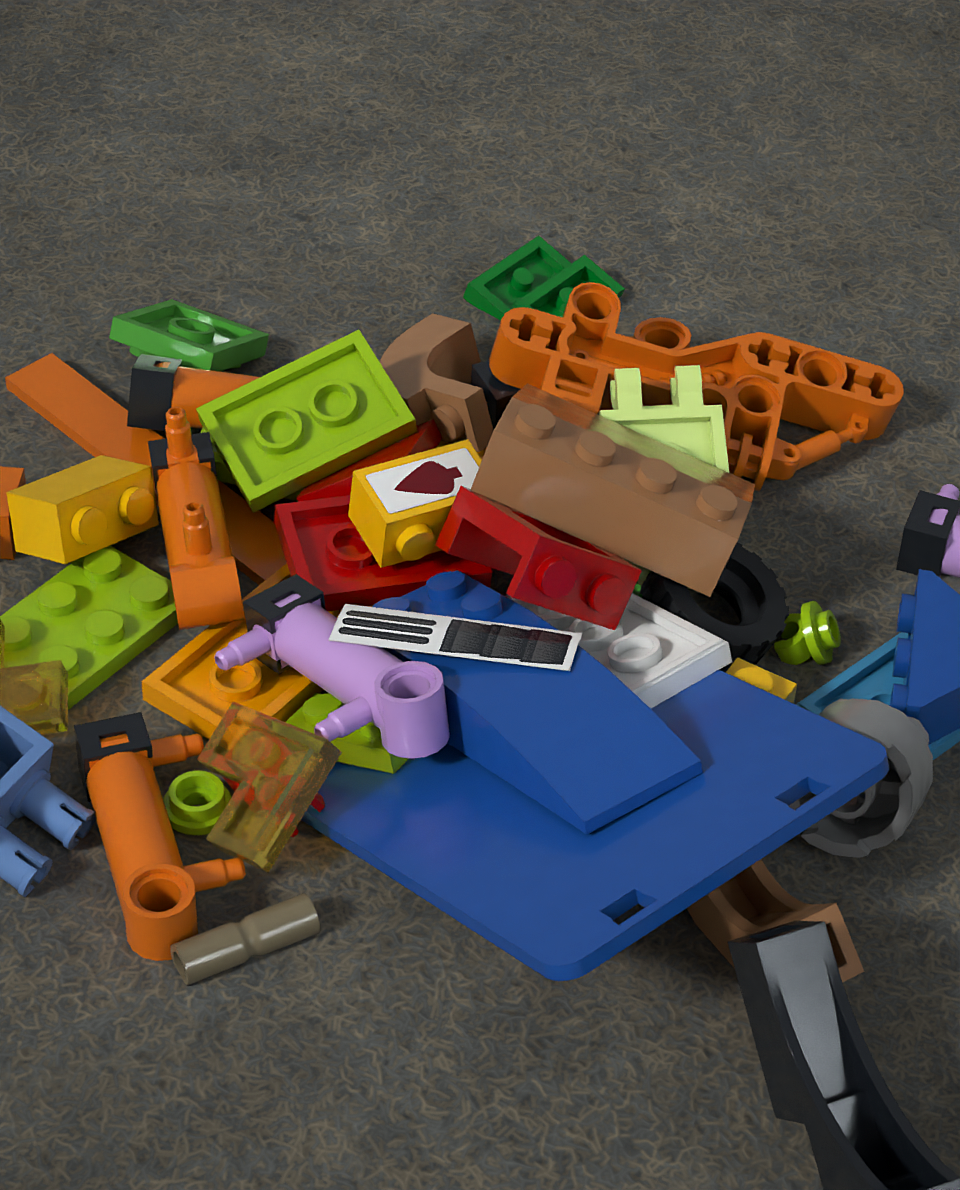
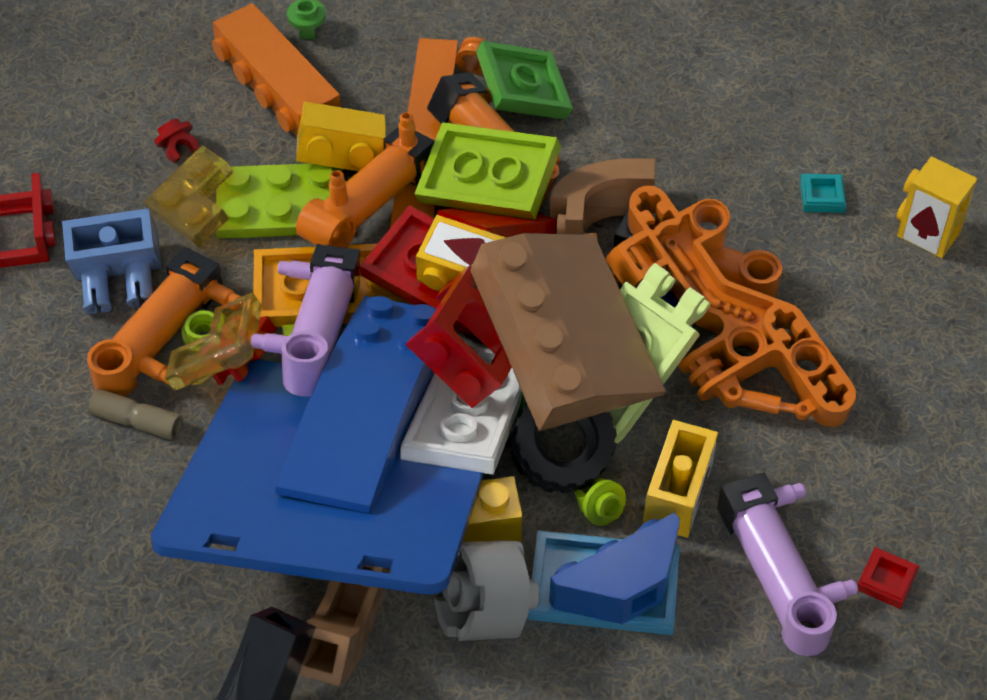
camera: 50 degrees right, 10 degrees up
(87, 342) = (464, 58): none -> orange bush
(456, 637) = (365, 344): sticker -> none
(534, 279) = (761, 190): green slope -> none
(602, 250) = (822, 193): none -> teal tile
(728, 189) = (935, 206): none -> yellow brick
(856, 552) = (681, 474): none -> yellow brick

